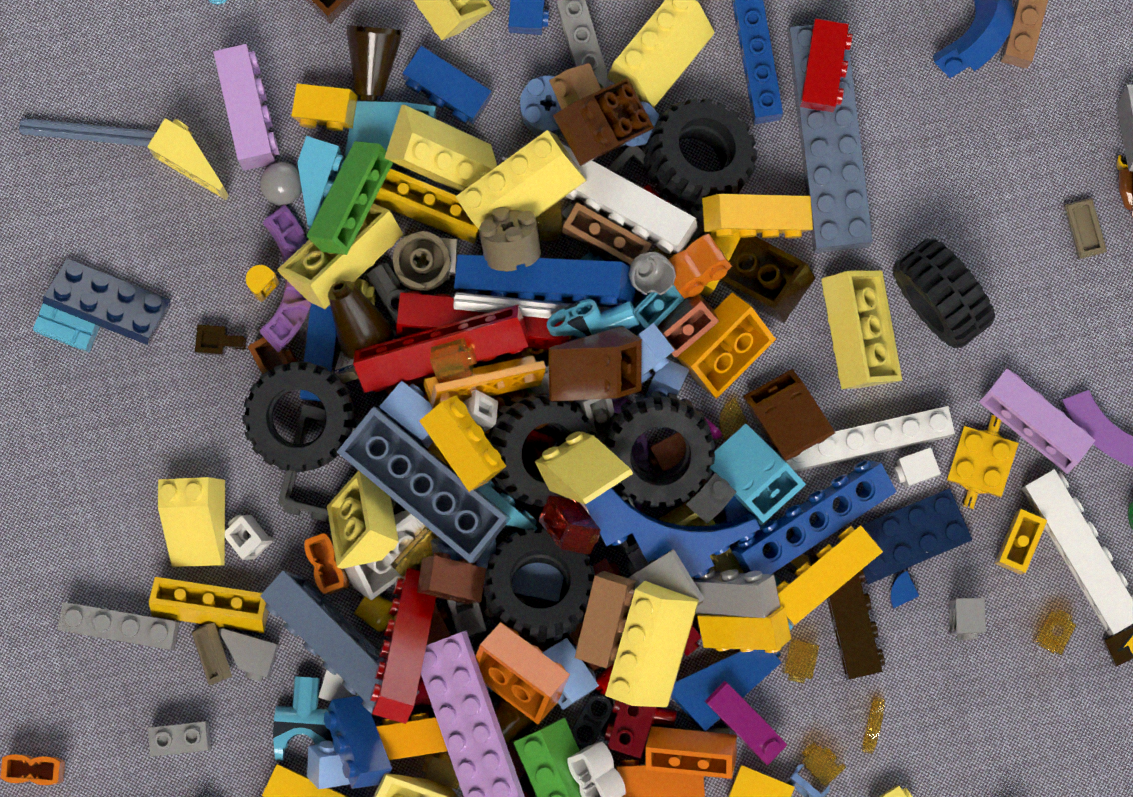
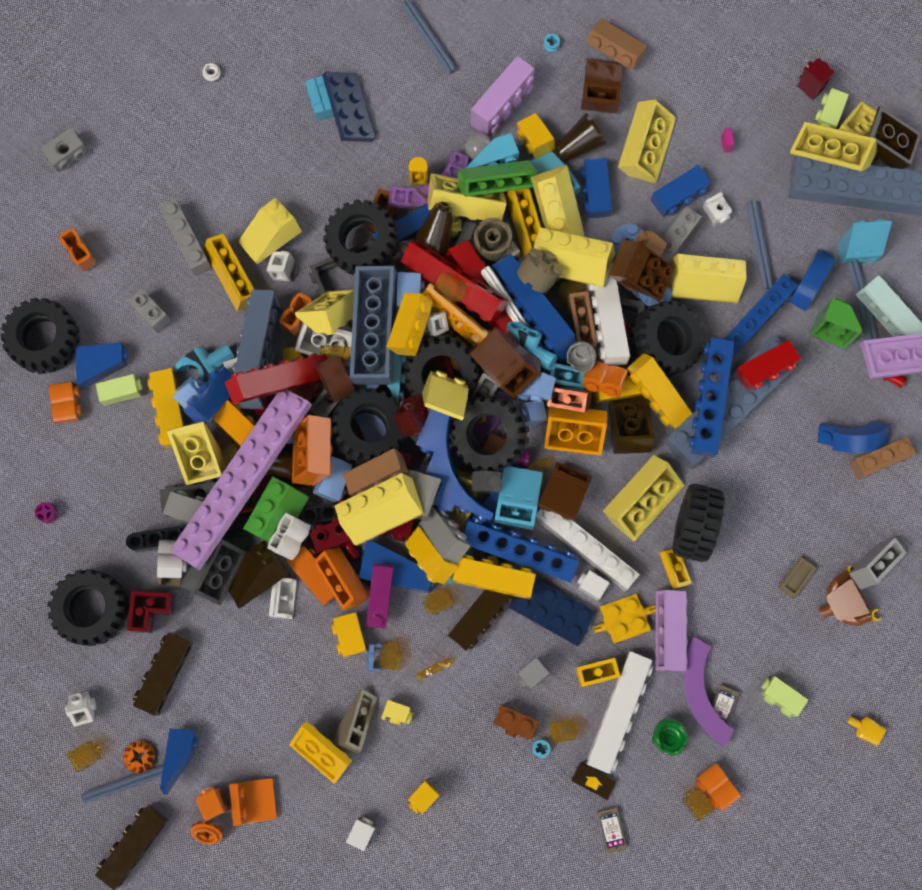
camera: 55 degrees right, 5 degrees down
(178, 150) = (454, 79): light yellow slope -> none
(211, 654) = (206, 294): dark tan tile -> none
(214, 340) = (370, 174): dark brown plate -> none
(251, 654) = (220, 313): light grey slope -> none
(770, 101) = (723, 350): none -> blue brick
(902, 590) = (520, 629): blue tile -> none
(971, 360) = (675, 569): none -> yellow brick
(1005, 679) = (515, 723): none -> dark orange brick
(1058, 680) = (538, 754): none -> medium azure bush

